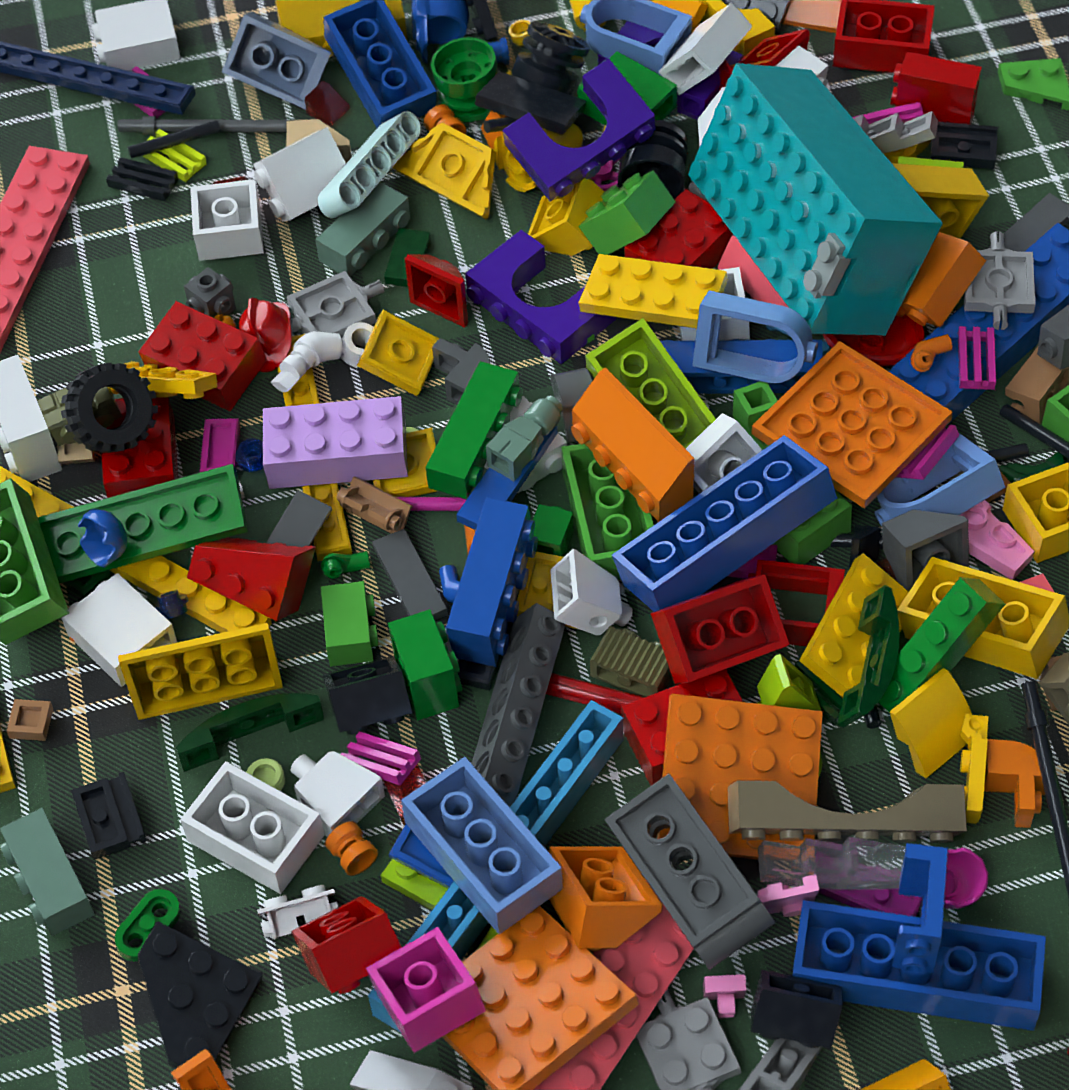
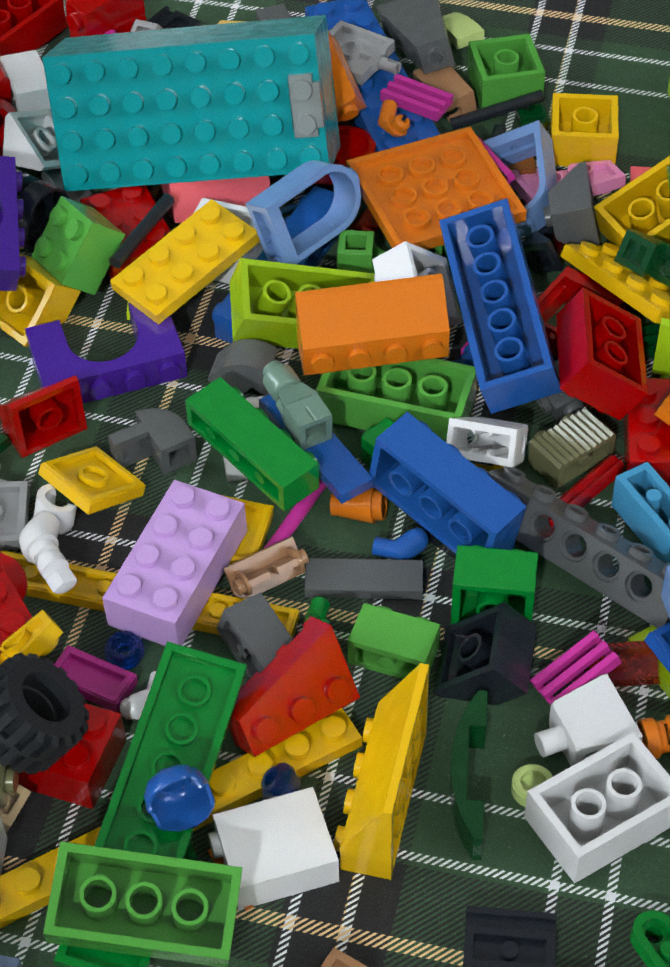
camera: 65 degrees left, 5 degrees down
(665, 245) = (141, 230): none -> black bar

